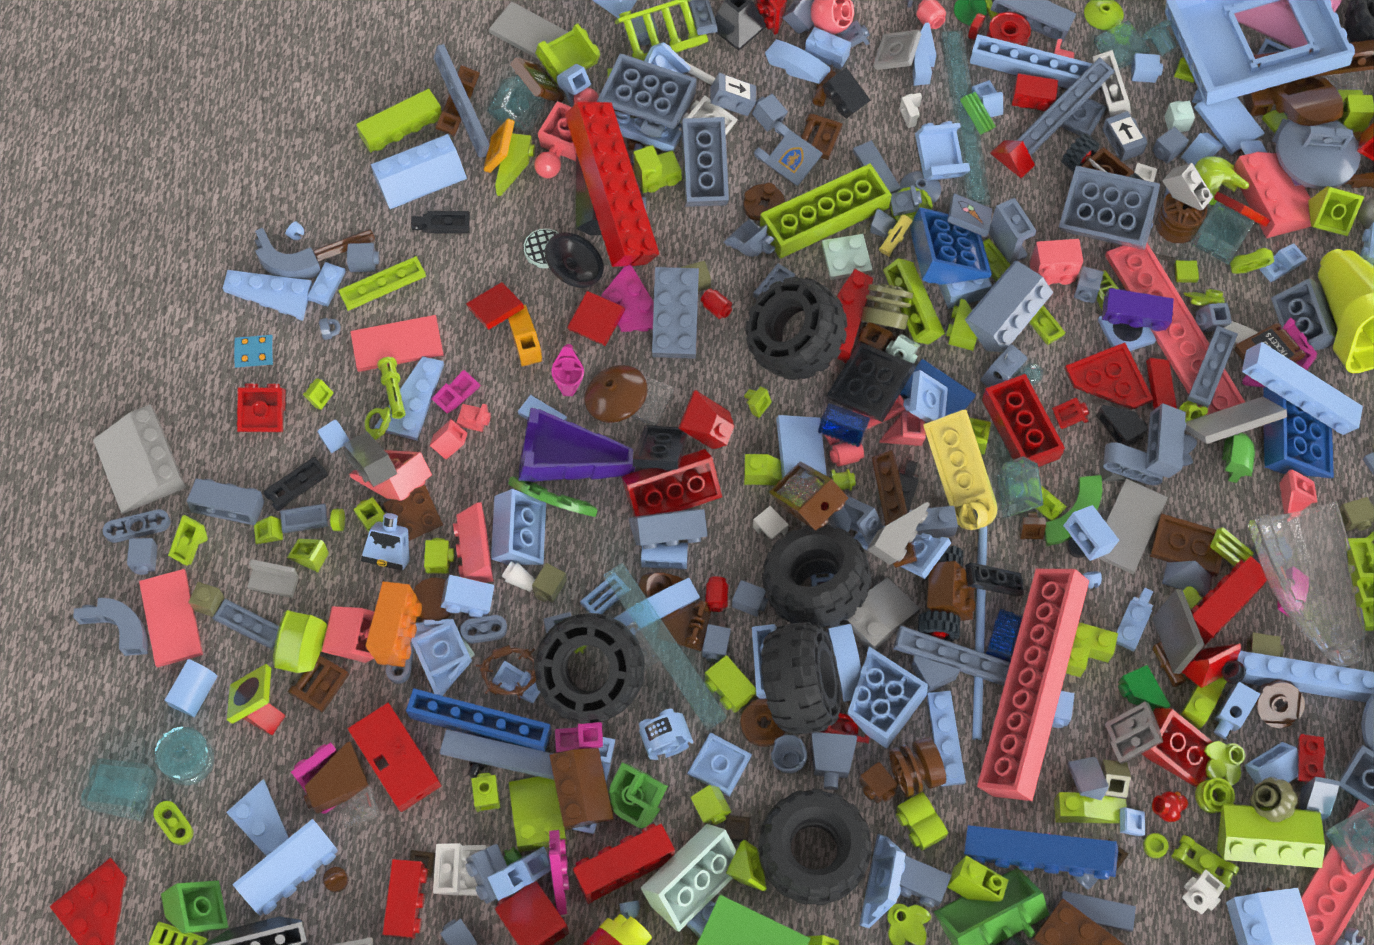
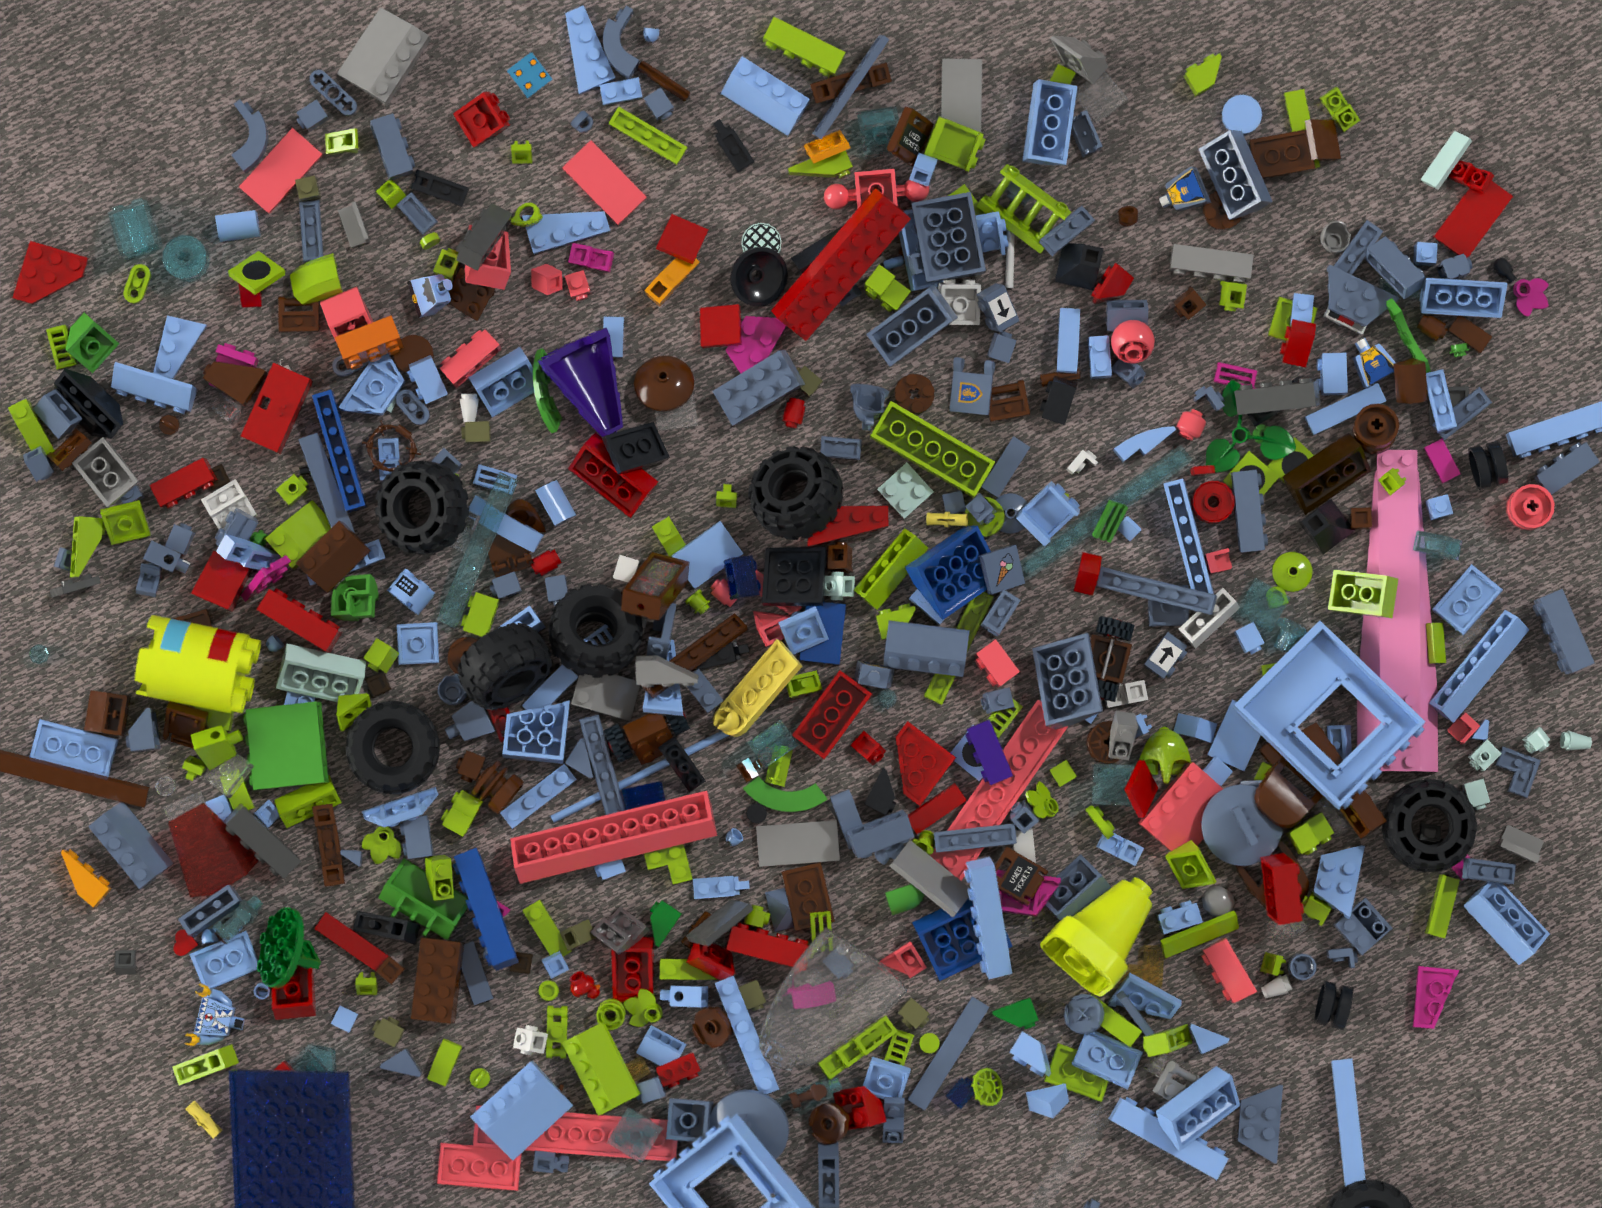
camera: 55 degrees right, 20 degrees up
(309, 553) = (390, 236): lime slope -> none
(333, 436) = (495, 189): light blue slope -> none
(392, 385) = (568, 200): lime pin -> none
(438, 556) = (448, 335): lime brick -> none
(567, 370) = (659, 334): dark pink hat -> none
(581, 737) = (369, 531): dark pink slope -> none
(669, 528) = (573, 494): sand blue slope -> none
(707, 421) = (683, 469): red slope -> none
(887, 306) = (864, 552): olive wheel -> none
(897, 49) = (1134, 417): light grey tile -> none
(984, 89) = (1141, 514): light blue tile -> none
(1034, 92) = (1160, 557): red brick -> none
(1089, 777) = (565, 915): sand blue slope -> none
(1091, 532) = (765, 817): light blue brick -> none
(1170, 145) = (1178, 698): sand blue brick -> none
(1179, 116) = (1213, 691): light aqua brick -> none
(1233, 672) = (710, 979): black plate -> none
(1275, 795) = (631, 1056): olive plant -> none

